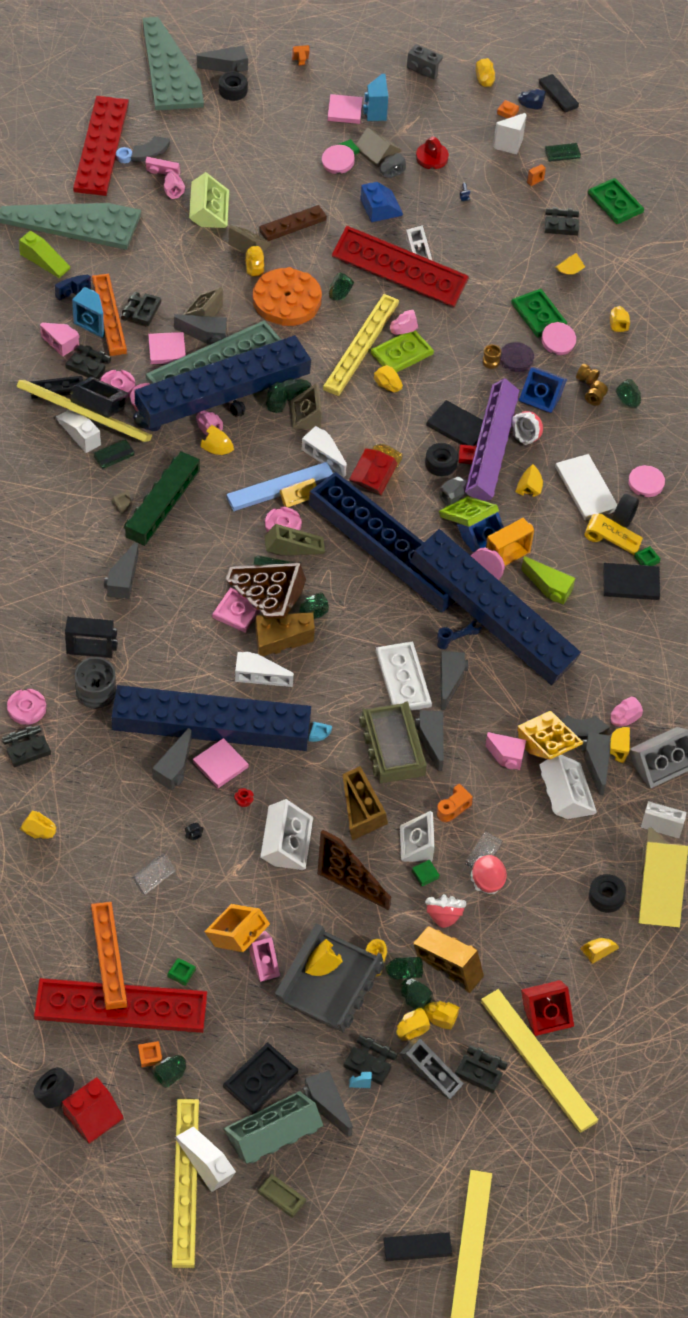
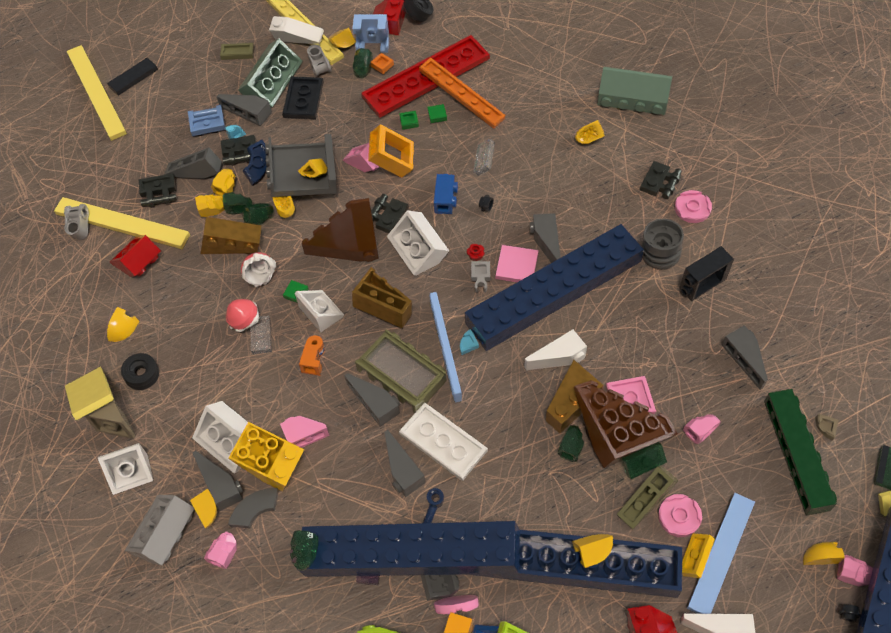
camera: 150 degrees right, 5 degrees up
(136, 1097) = (371, 29): none -> light blue panel
(149, 957) = (437, 113): none -> green tile
(165, 1117) = (342, 38): none -> yellow brick
(210, 553) = (701, 427): none -> bright pink rock
(212, 1103) = (318, 60): none -> light grey piece
(222, 864) = (444, 194): none -> blue brick
(259, 774) = (480, 273): none -> light grey plate
(285, 883) = (392, 213): none -> pearl dark grey plate
(341, 737) = (445, 347): none -> light blue tile
(363, 1027) = (257, 164): none -> dark blue tile
(370, 523) = (593, 548): none -> yellow brick
(382, 1114) = (206, 120): none -> medium blue plate
(568, 650) = (303, 549): none -> clear green rock
(584, 1079) = (76, 218): none -> light grey piece

